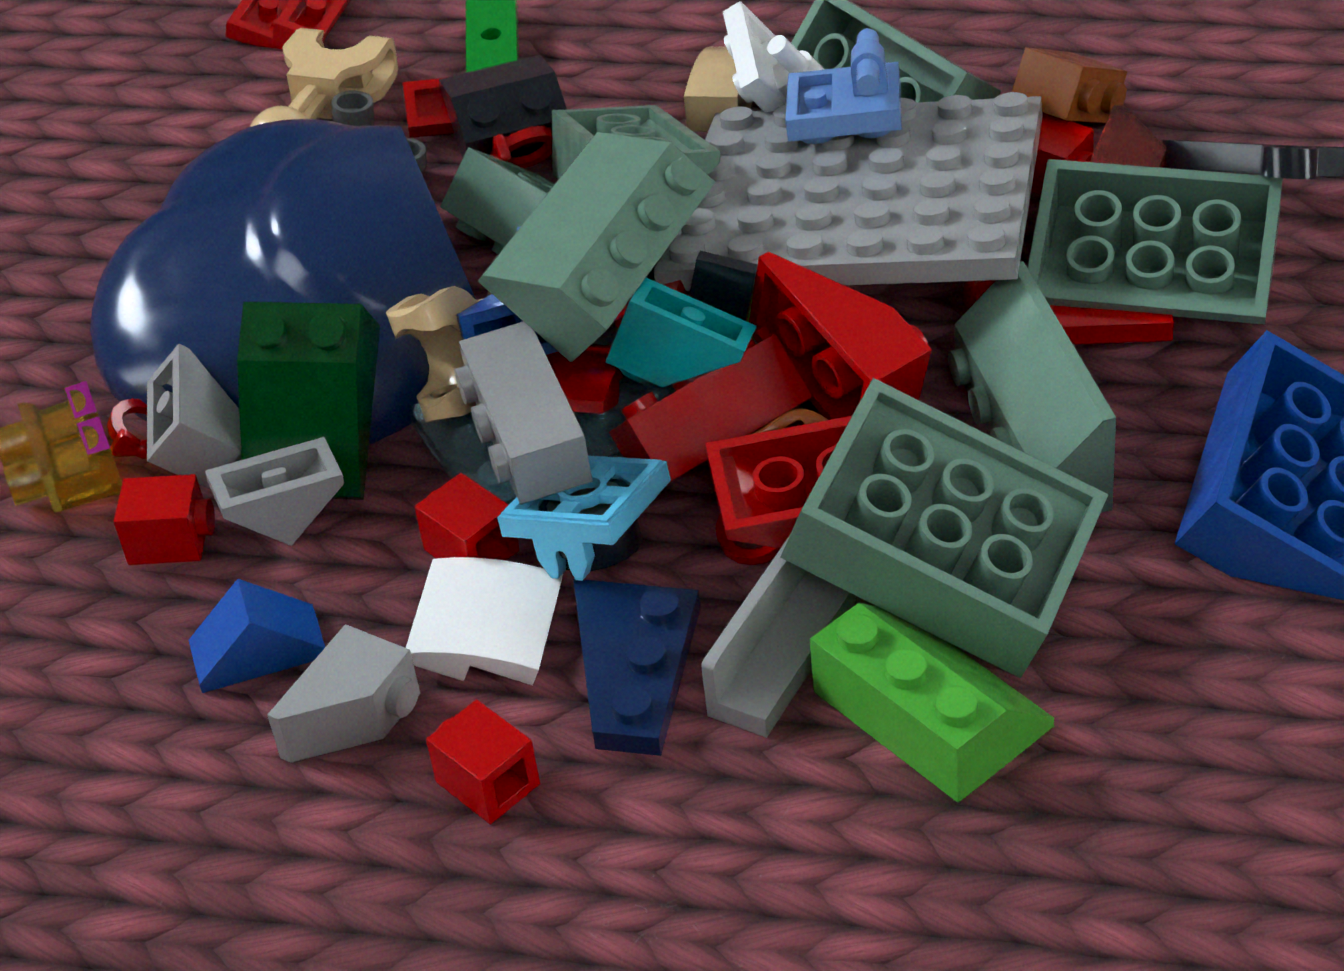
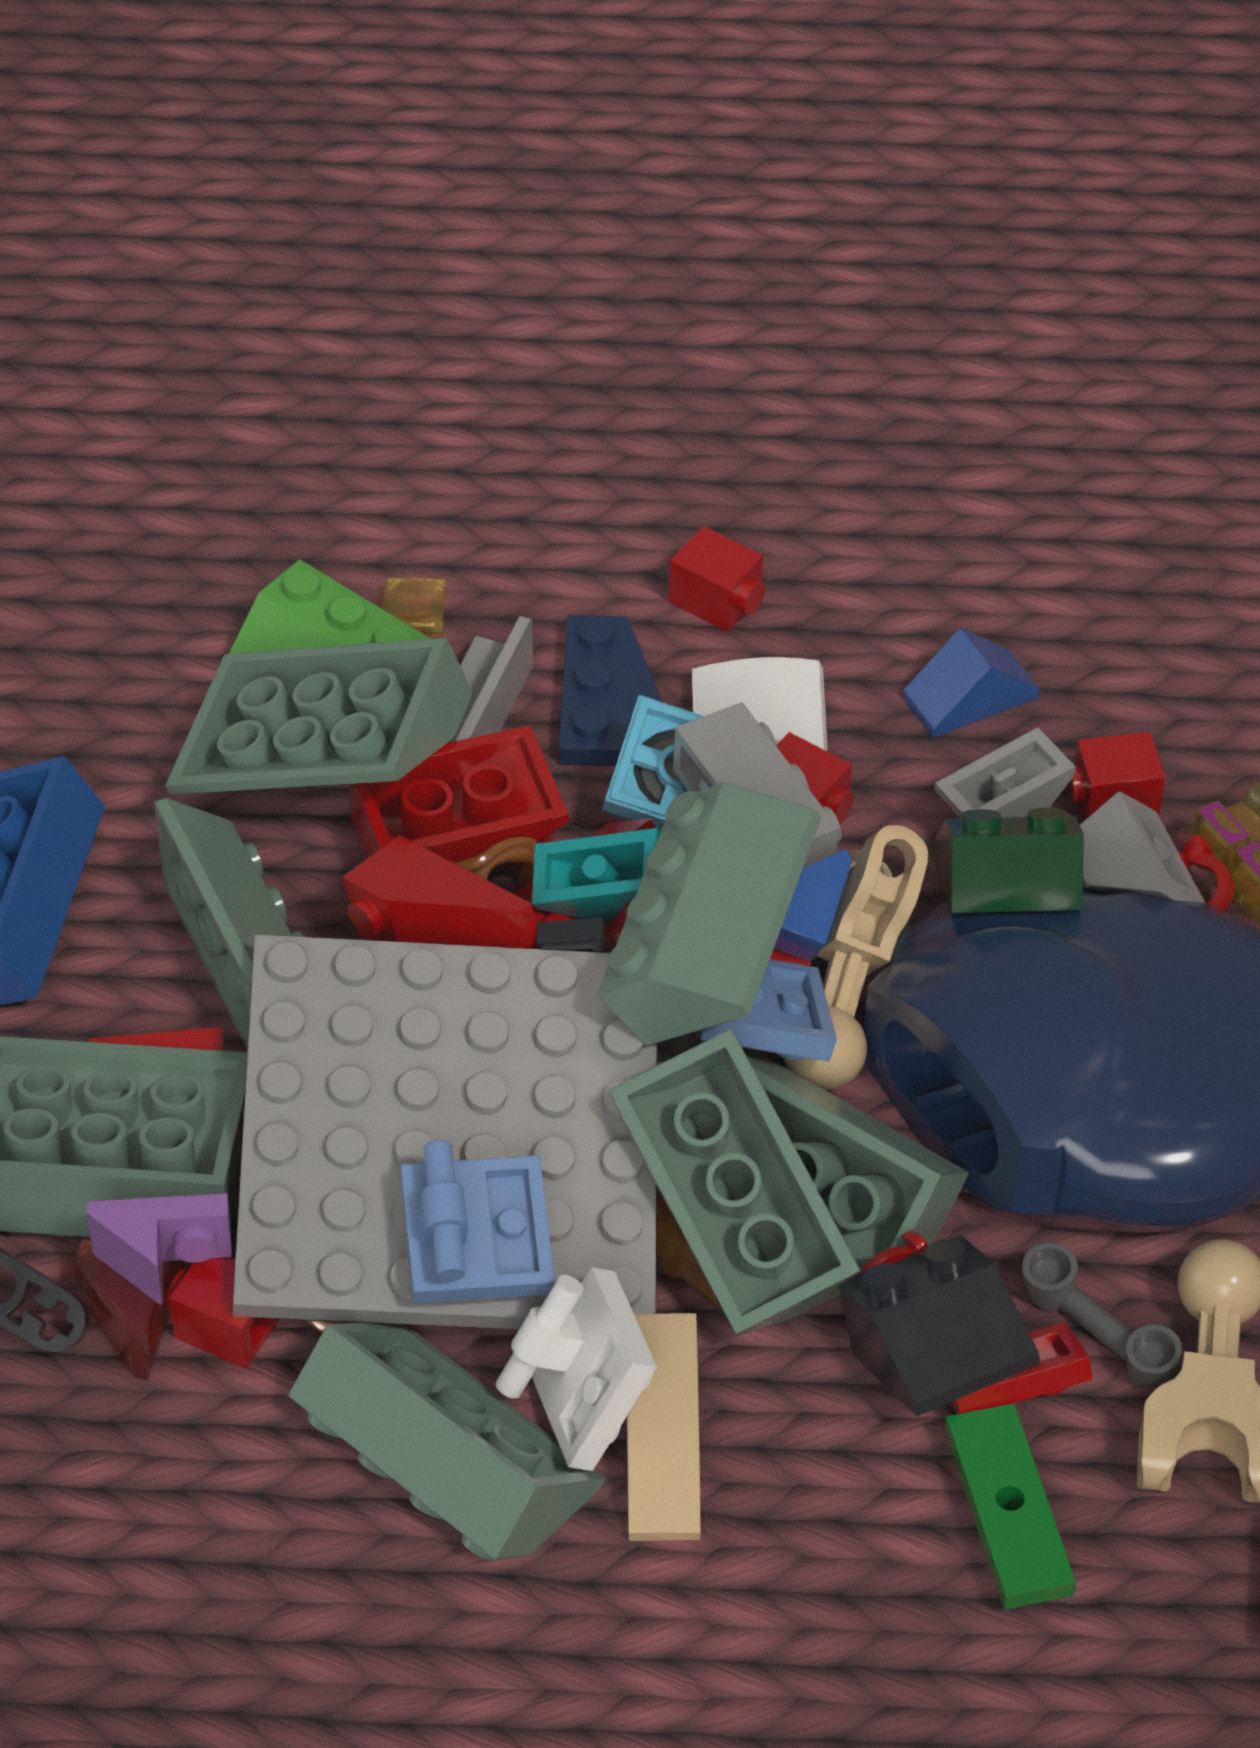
camera: 165 degrees right, 5 degrees up
(345, 697) = (857, 624): light grey slope -> none
(829, 781) = (417, 603): none -> clear yellow tile
(1071, 84) = (197, 1374): dark orange brick -> none
(1111, 132) = (144, 1232): none -> medium lavender slope

